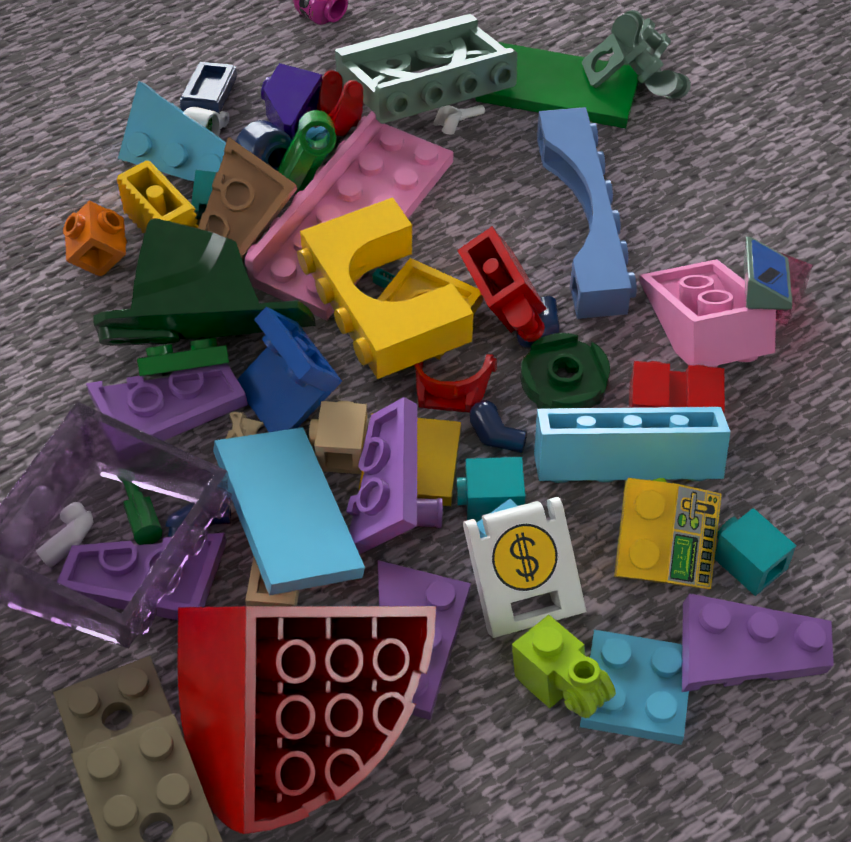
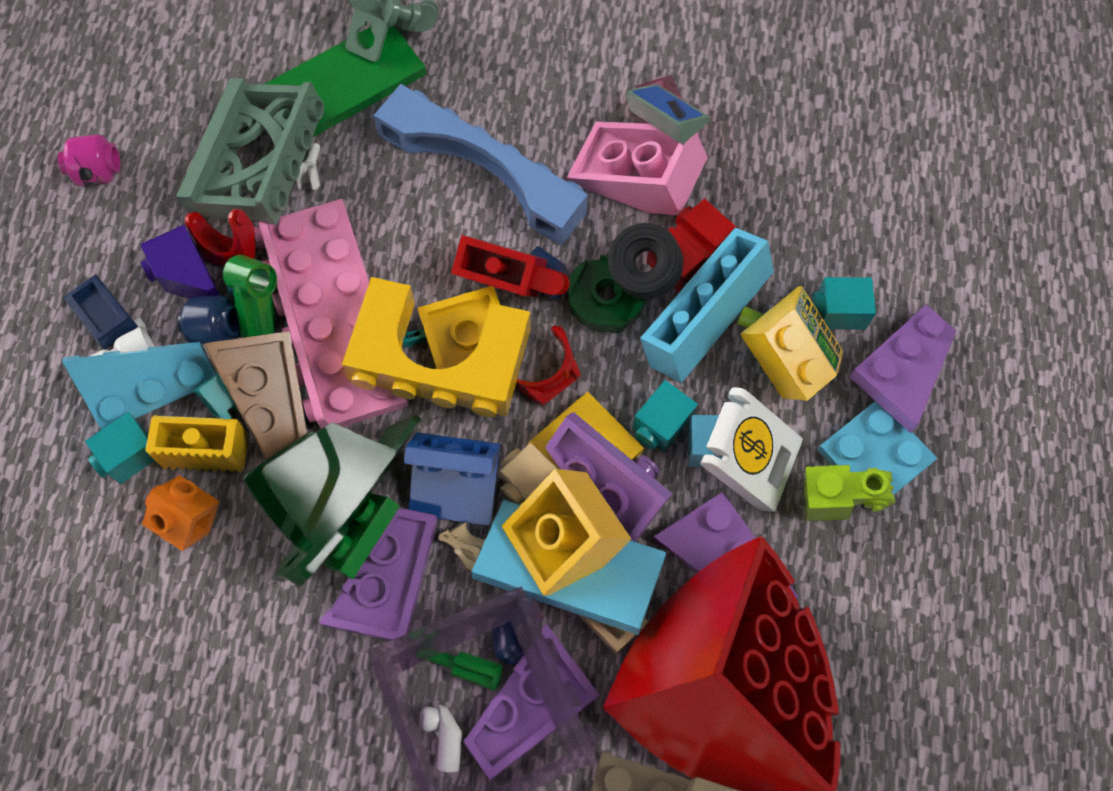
camera: 50 degrees left, 15 degrees up
(103, 168) = (120, 449): none -> teal brick
(310, 473) = (565, 530): none -> yellow slope
(491, 429) = (608, 376): dark blue arm -> none
(619, 384) = (629, 245): none -> black tyre

